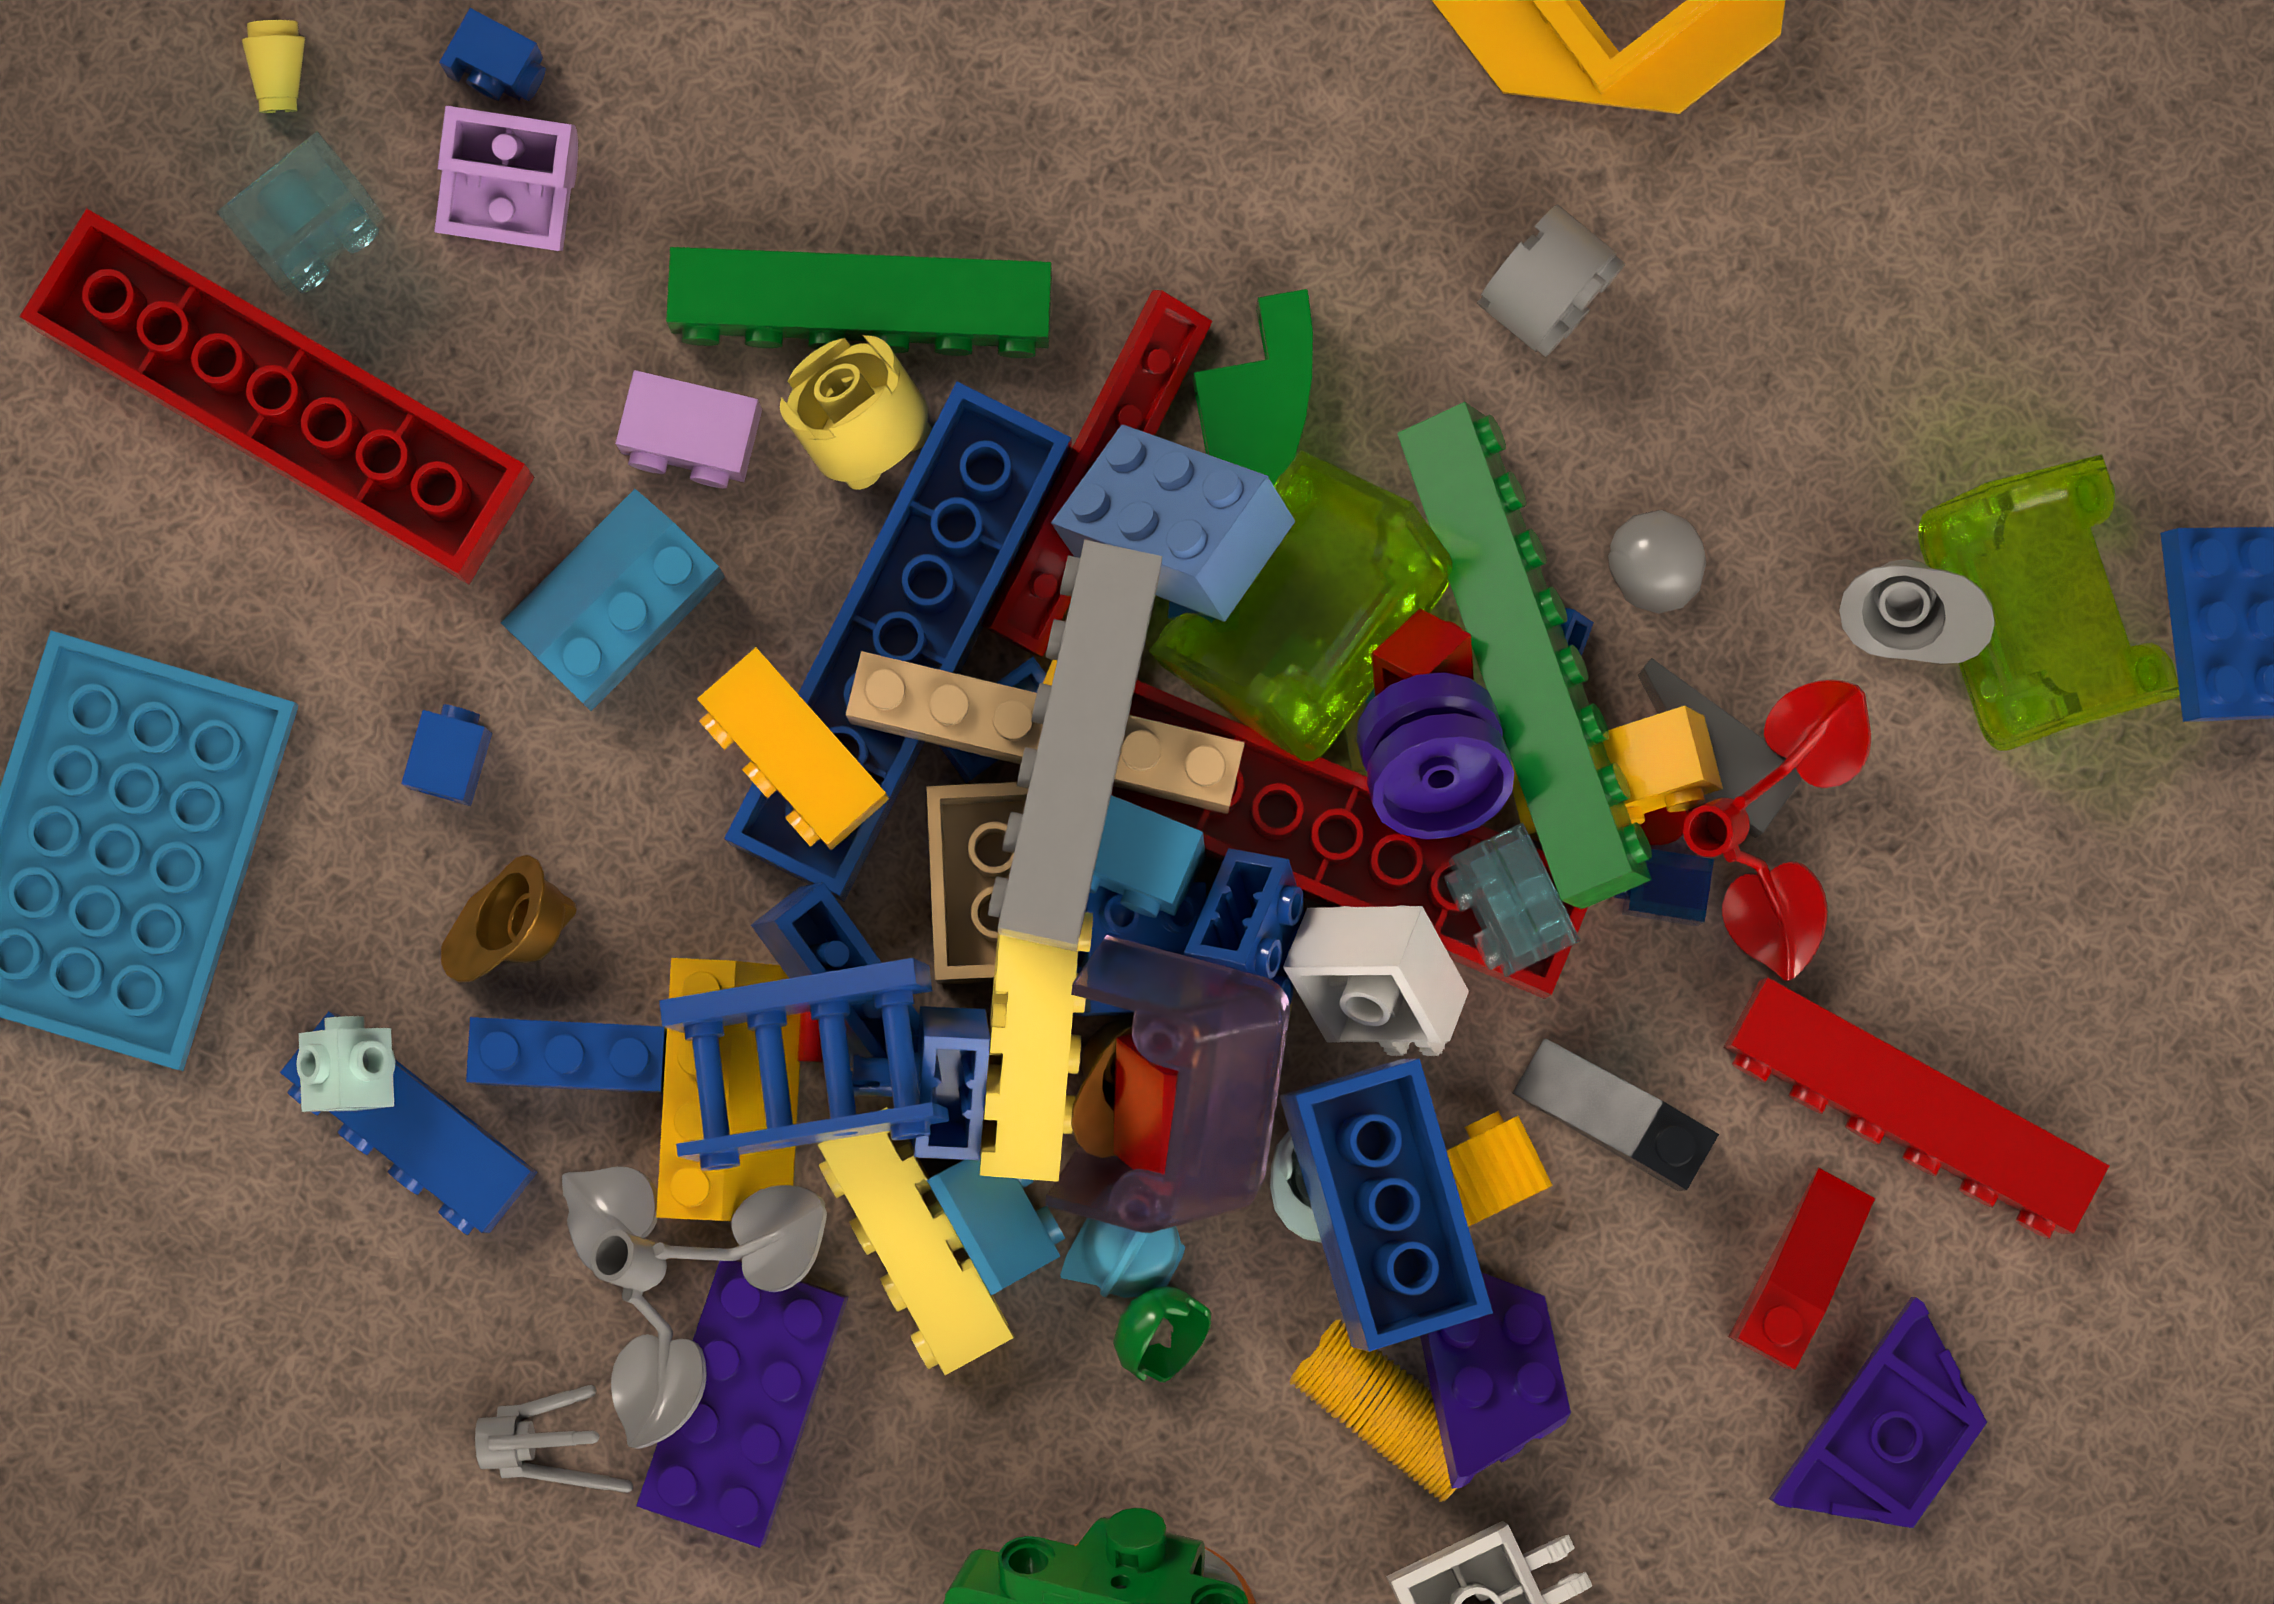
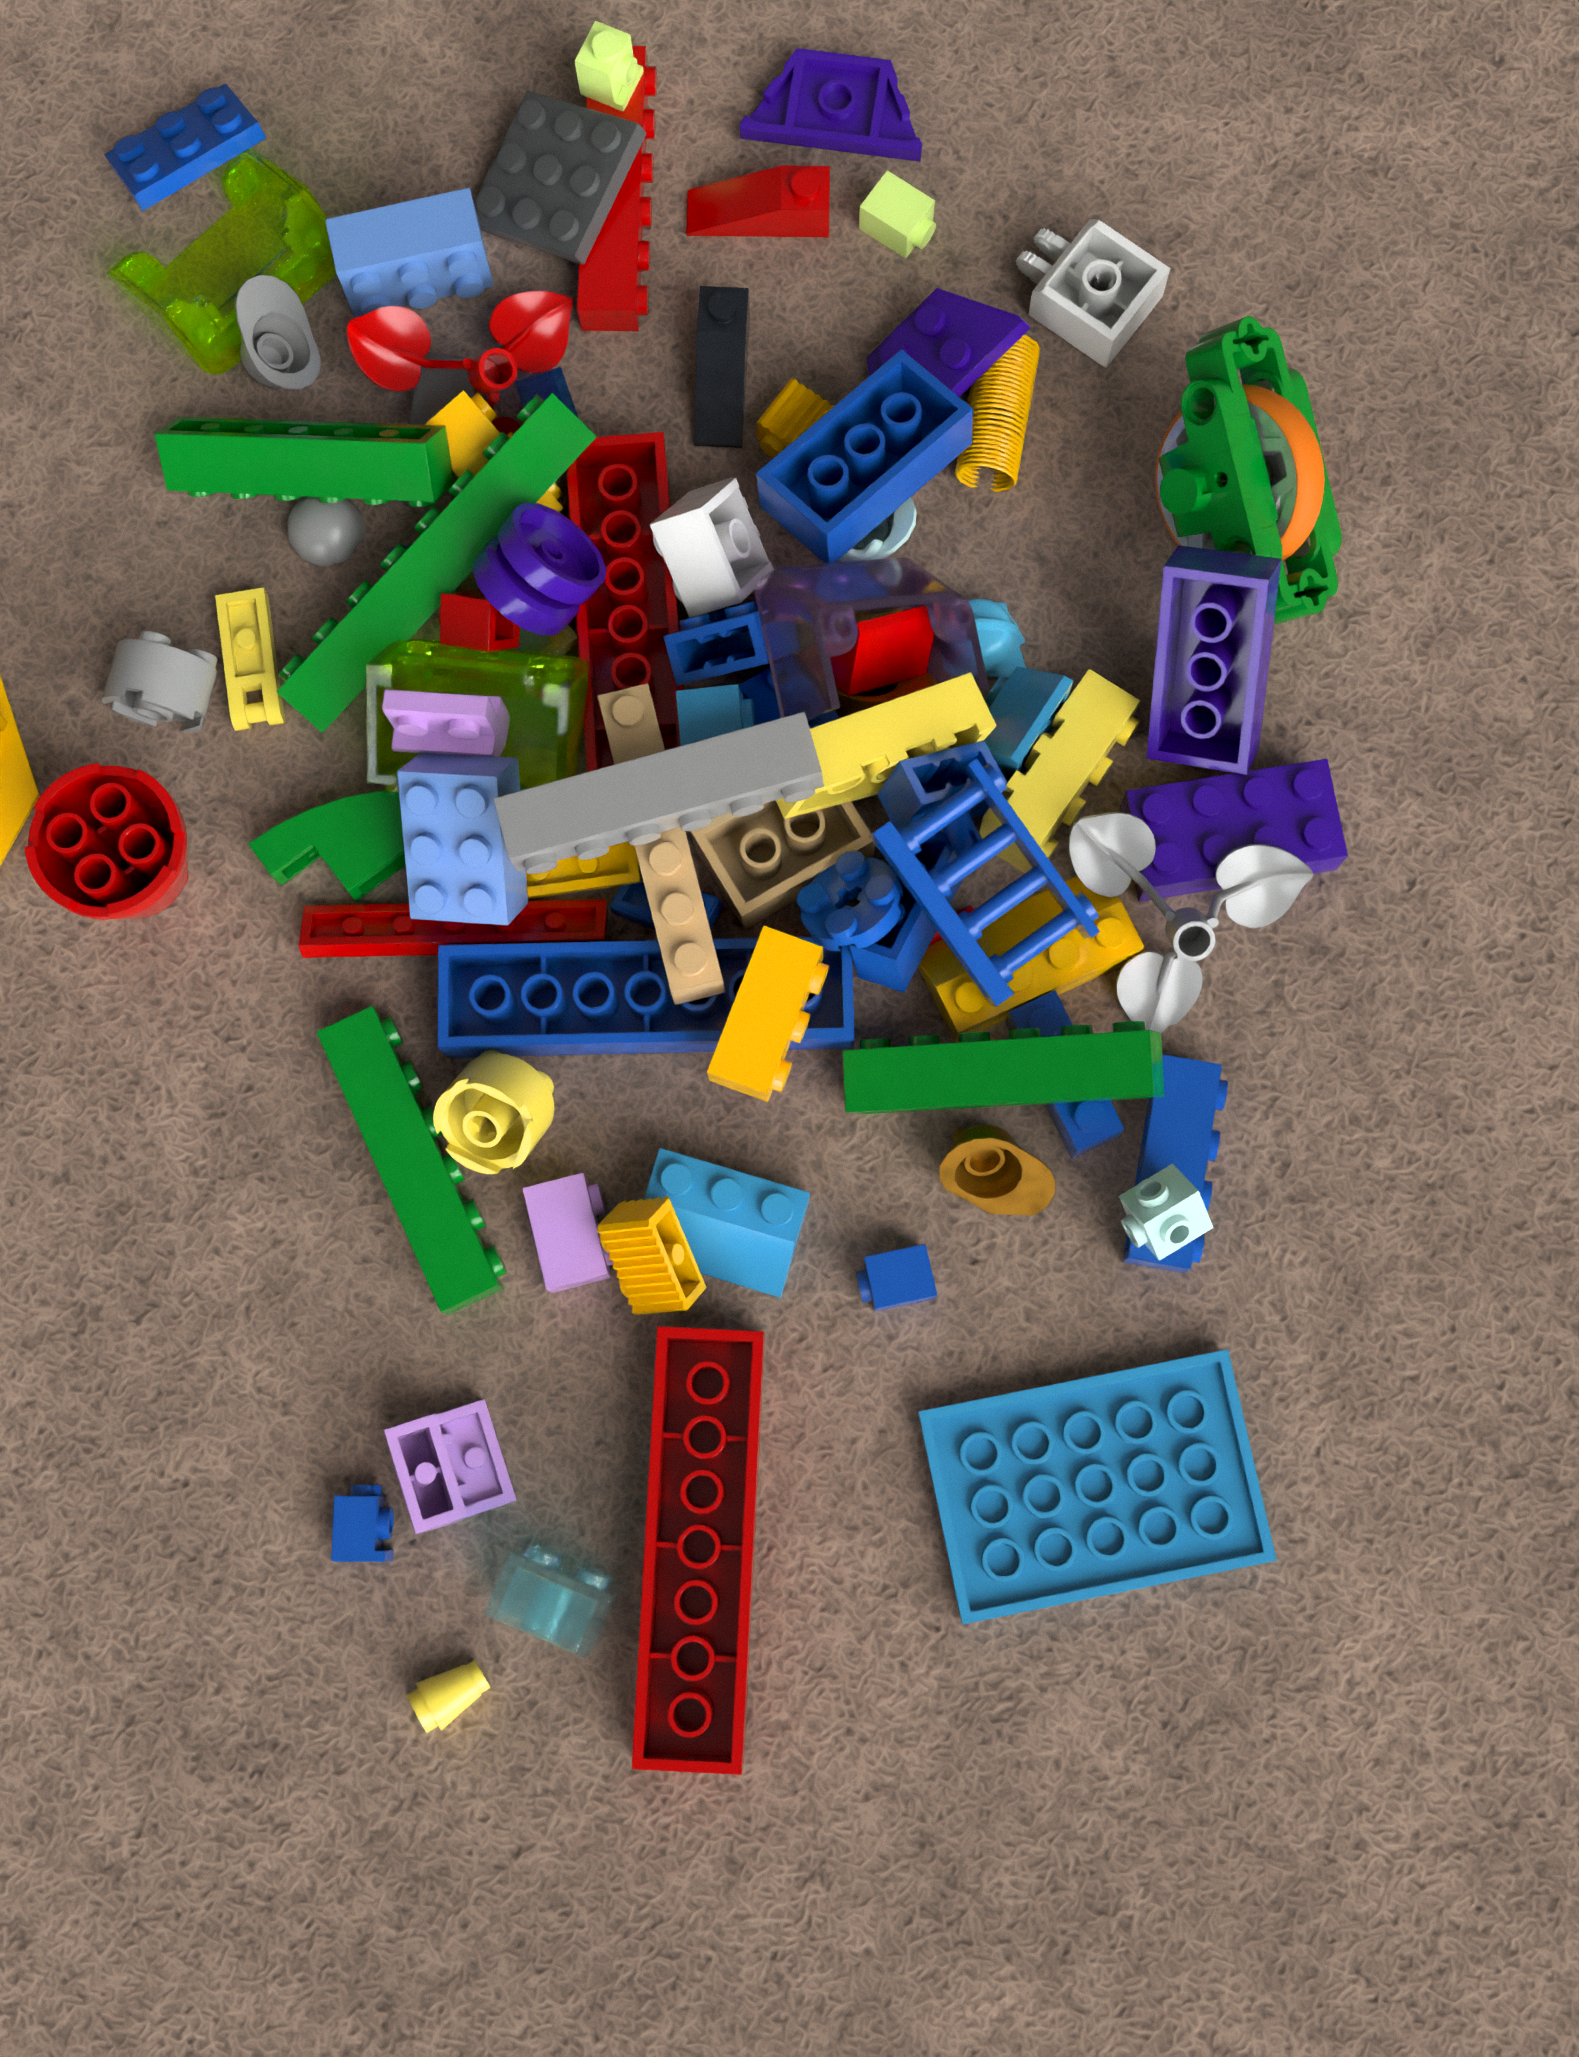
camera: 110 degrees left, 5 degrees down
(508, 1441) = (1351, 976): light grey plant -> none
(595, 979) = (1005, 1071): none -> green brick
(607, 499) = (651, 1256): none -> yellow brick
(894, 885) = (851, 878): none -> blue plate
(932, 1469) = (1212, 658): none -> dark purple brick
(1139, 1323) = (1029, 585): green hair -> none
(1308, 566) = (447, 723): none -> lavender brick
(1372, 93) = (90, 830): none -> red cone
(1511, 901) = (614, 478): clear light blue brick -> none
(1542, 399) = (249, 657): none -> light yellow plate
(1702, 1428) = (898, 215): none -> yellowish green brick
(1729, 567) = (306, 459): none -> green brick
(1937, 816) = (410, 253): none -> medium blue brick
(1954, 1038) = (557, 176): none -> dark grey plate
(2052, 1166) = (607, 66): none -> yellowish green brick

